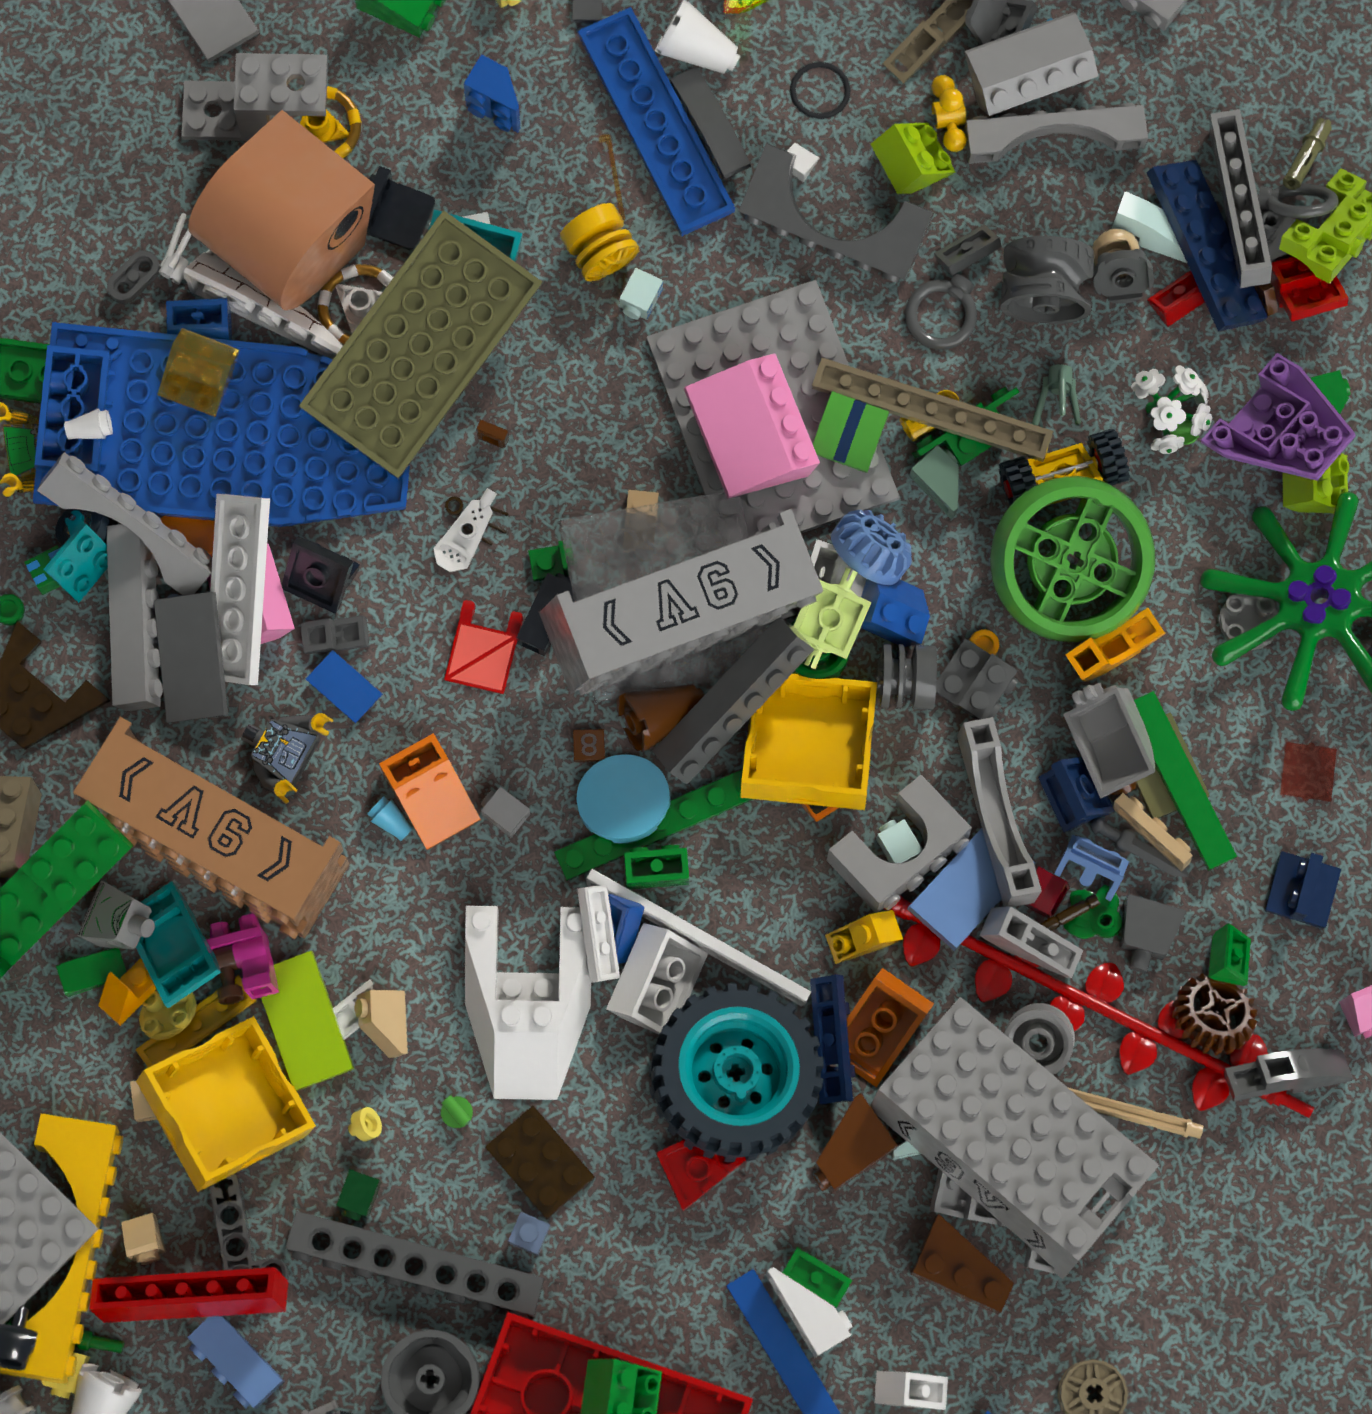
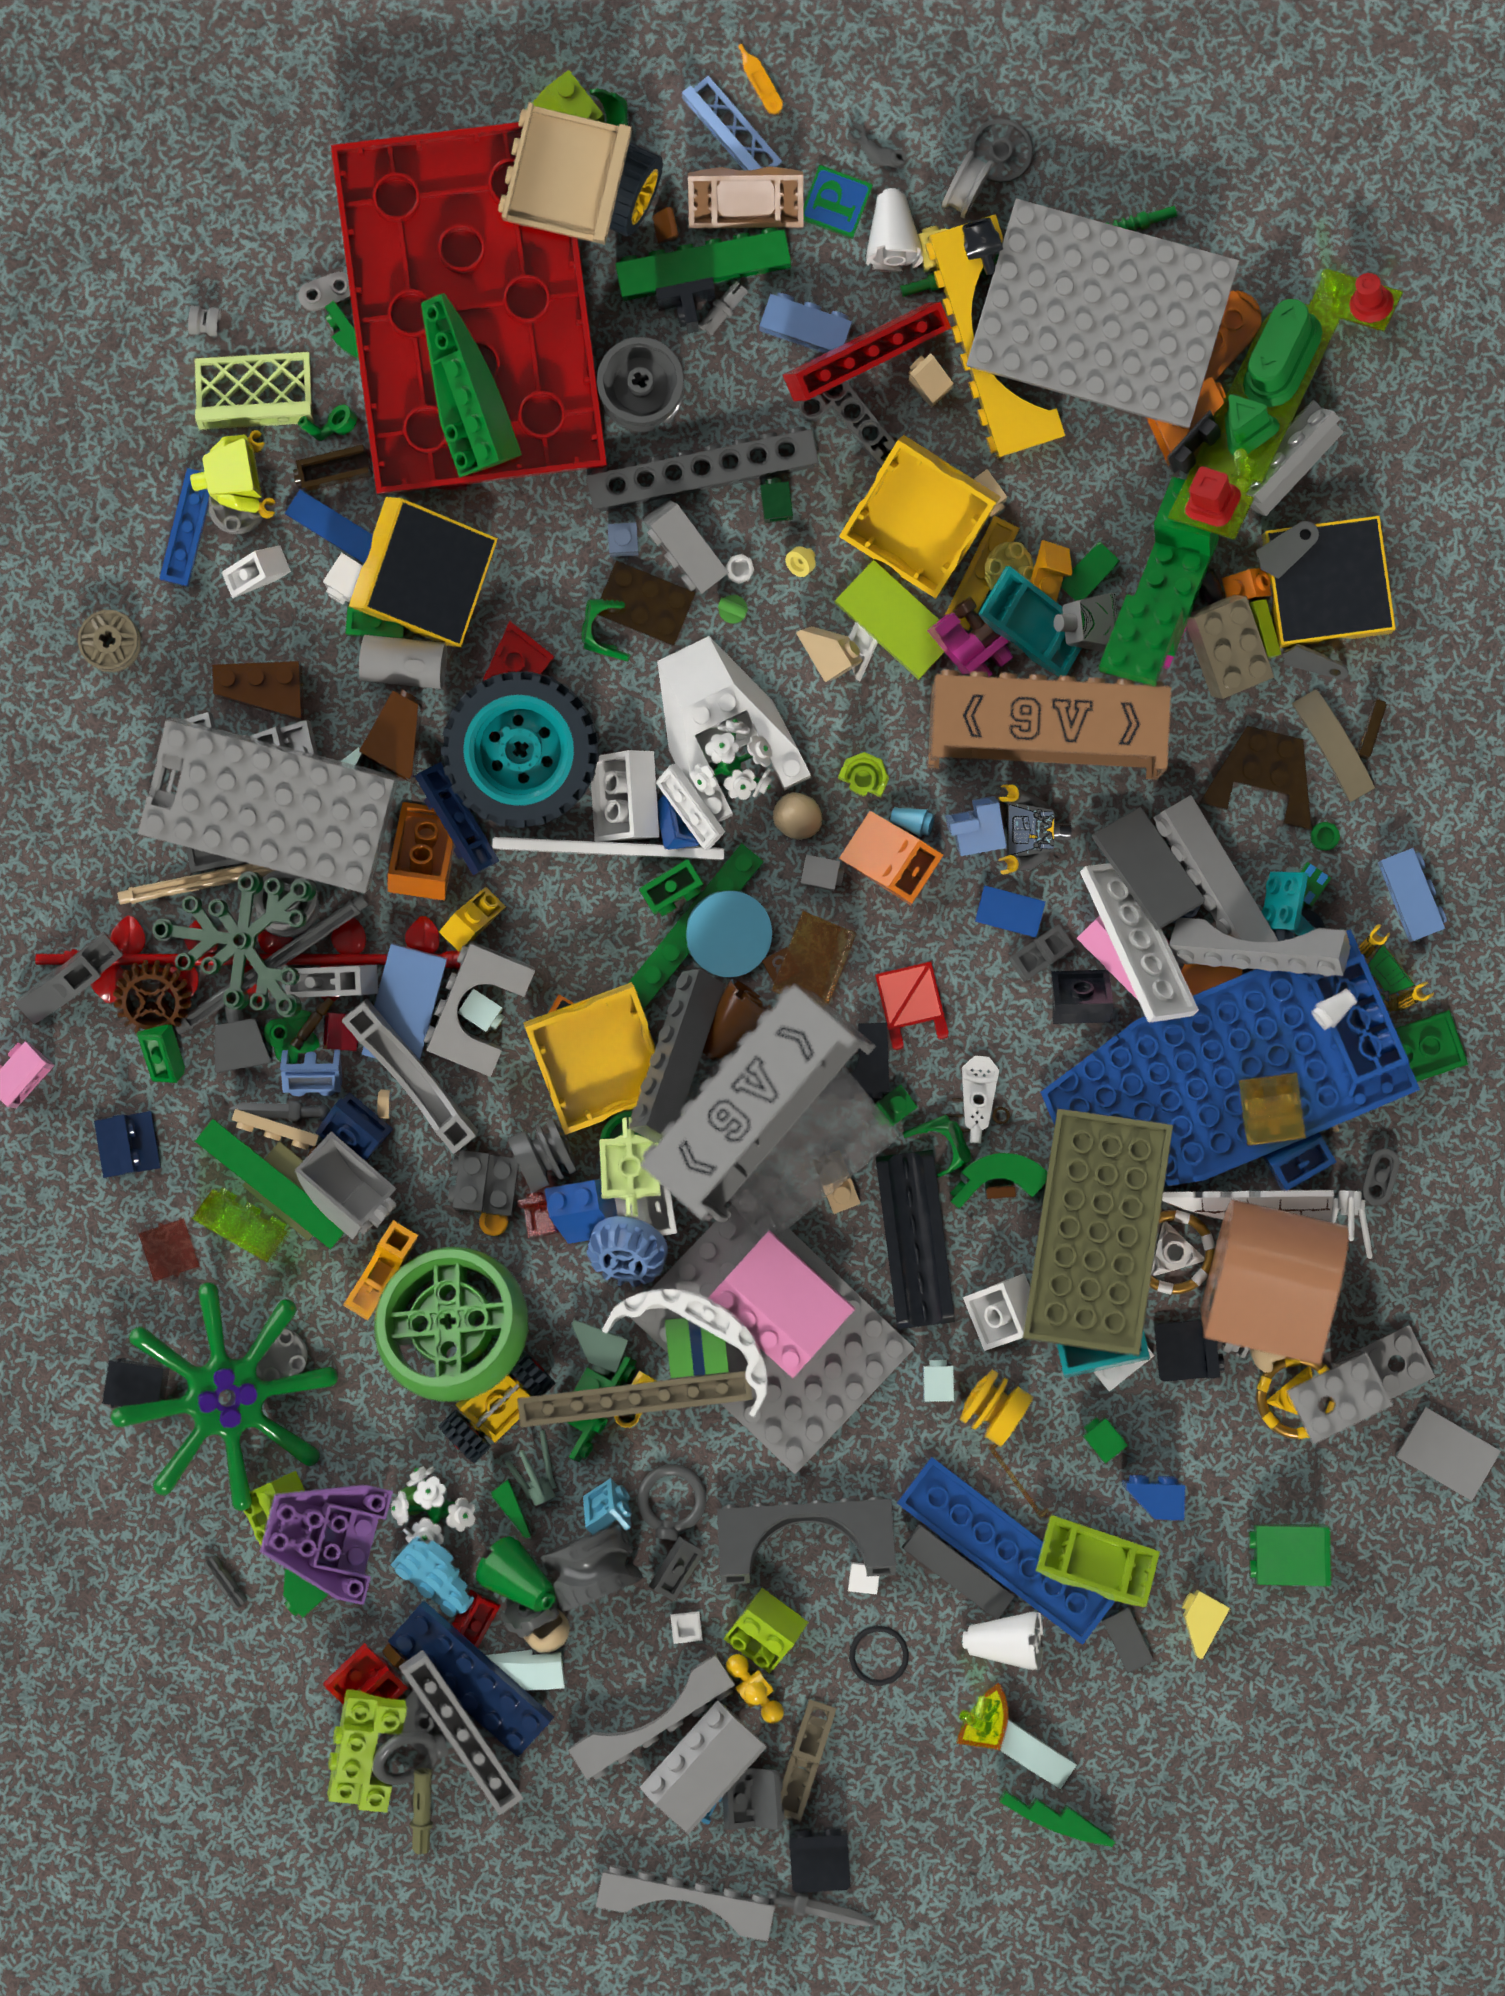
camera: 160 degrees right, 10 degrees up
(331, 775) = (978, 829): none -> medium blue plate
(413, 884) = (864, 774): none -> lime hair
(429, 1148) = (740, 568): none -> white tile
(472, 1196) = (684, 546): none -> light grey wedge
(483, 458) = (1007, 1166): none -> green arch
(499, 878) = (797, 816): none -> tan hair
(508, 510) = (953, 1133): none -> green helmet
(515, 171) = (1103, 1439): none -> green brick
(537, 960) = (722, 752): none -> white plant
(548, 328) = (999, 1311): none -> white slope
(555, 734) = (814, 956): none -> clear orange piece
(578, 67) = (1097, 1562): none -> lime slope
(594, 432) = (915, 1239): none -> black plate
(594, 1178) = (594, 607): none -> green helmet
(745, 1296) = (423, 571): none -> black tile
(809, 1221) = (403, 662): none -> light grey piece
(829, 445) = (708, 1316): none -> white windscreen
(940, 626) = (537, 1215): none -> clear red bracket
(984, 197) = (686, 1627): none -> white tile
(1006, 330) = (605, 1505): none -> medium azure bracket
(1035, 803) = (384, 1104): none -> tan tile
(1081, 988) = (277, 960): none -> dark grey piece
(1095, 383) = (507, 1500): none -> green slope
(1121, 306) = (515, 1575): none -> green cone
(1129, 1043) = (210, 936): none -> dark green plant
(1199, 347) = (433, 1575): none -> medium azure plate
(1228, 754) = (242, 1224): none -> clear neon green slope

